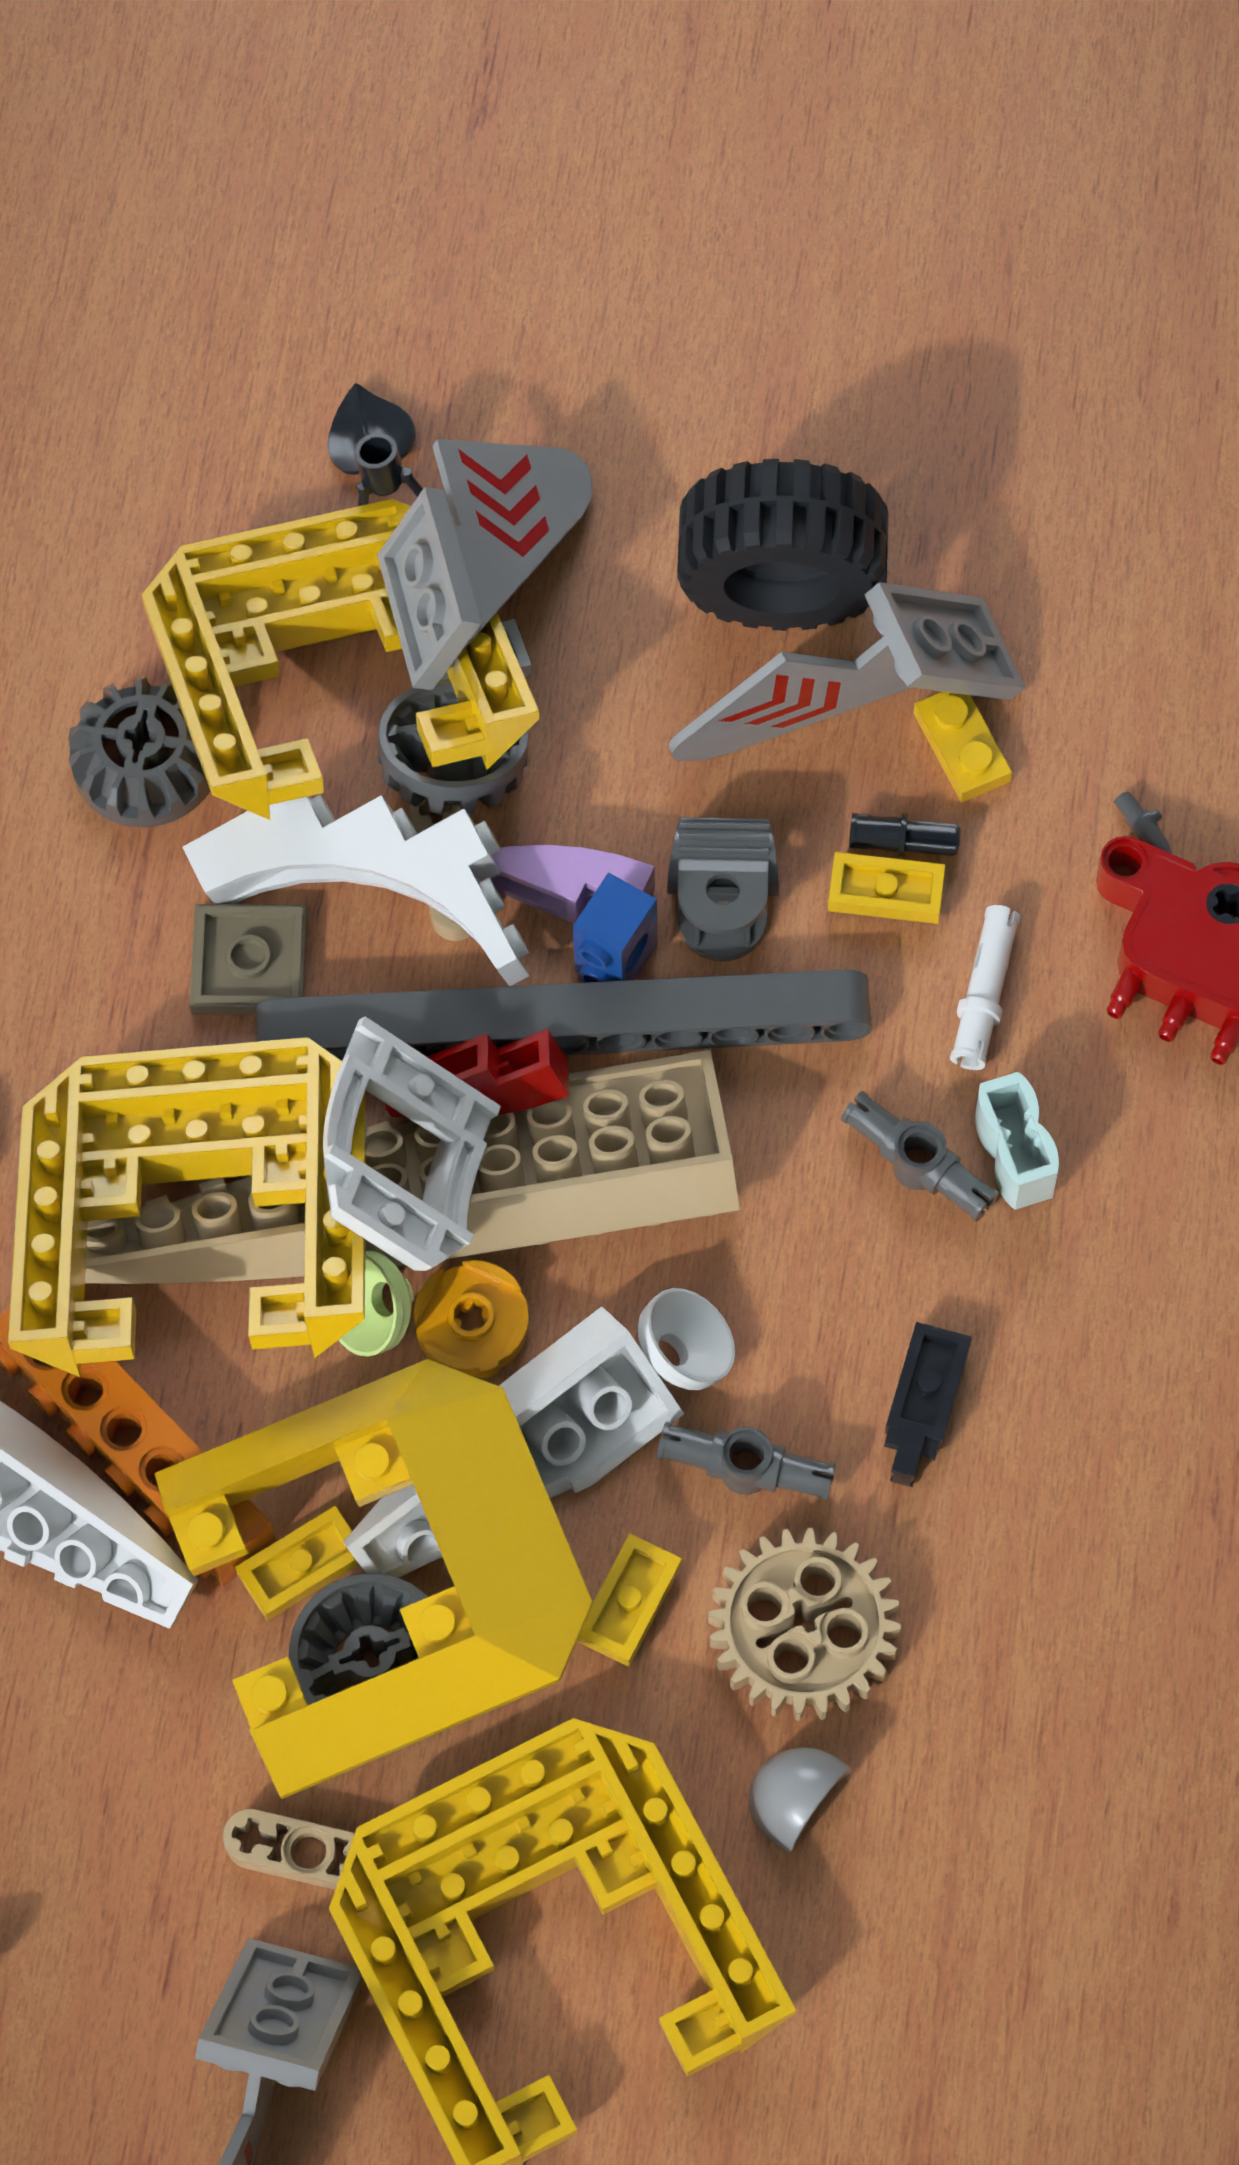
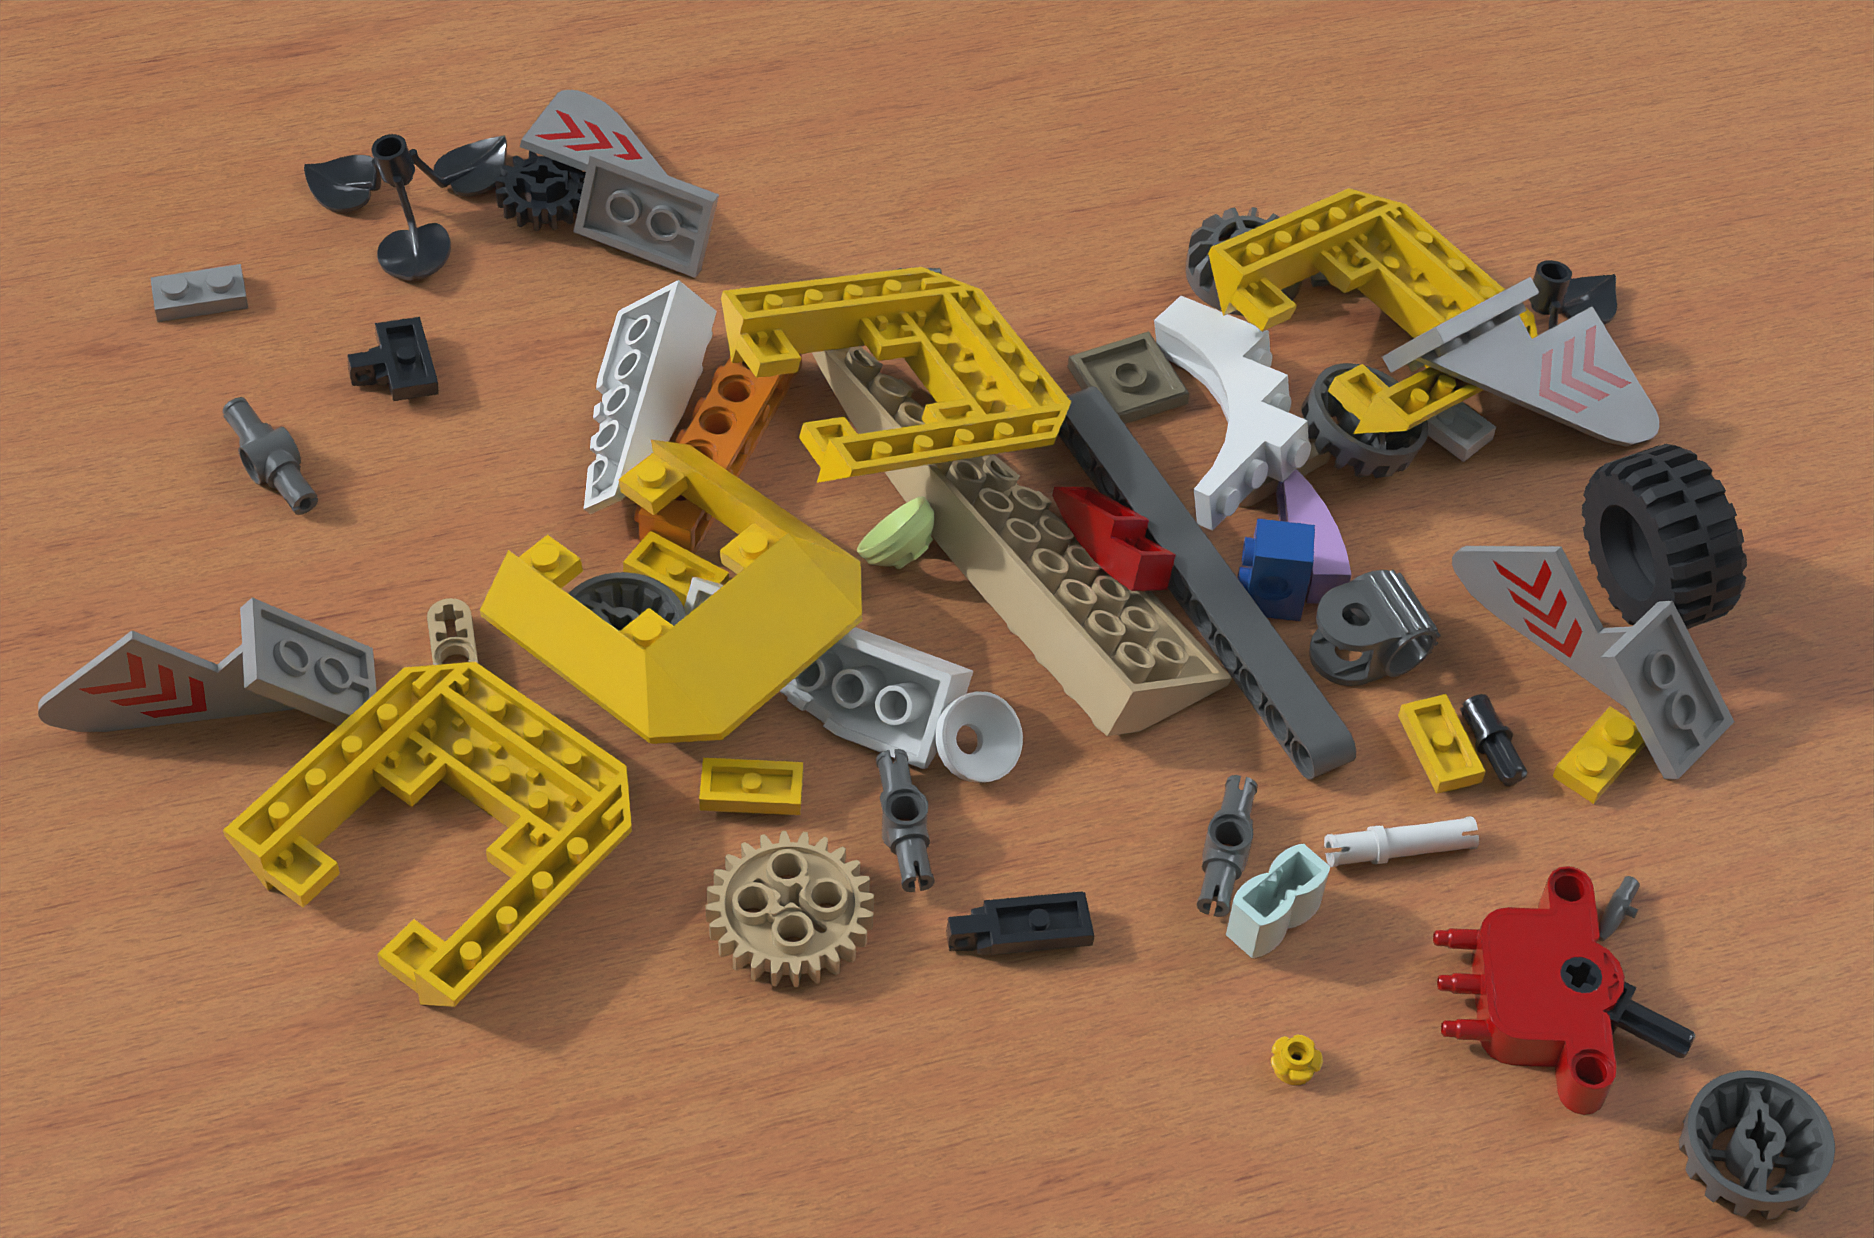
camera: 60 degrees right, 15 degrees down
(369, 1203) = (1067, 468): white wedge -> none
(460, 1289) = (924, 629): light orange plate -> none
(790, 1790) = (652, 943): light grey helmet -> none
(1183, 1226) = (1291, 1070): none -> yellow plate

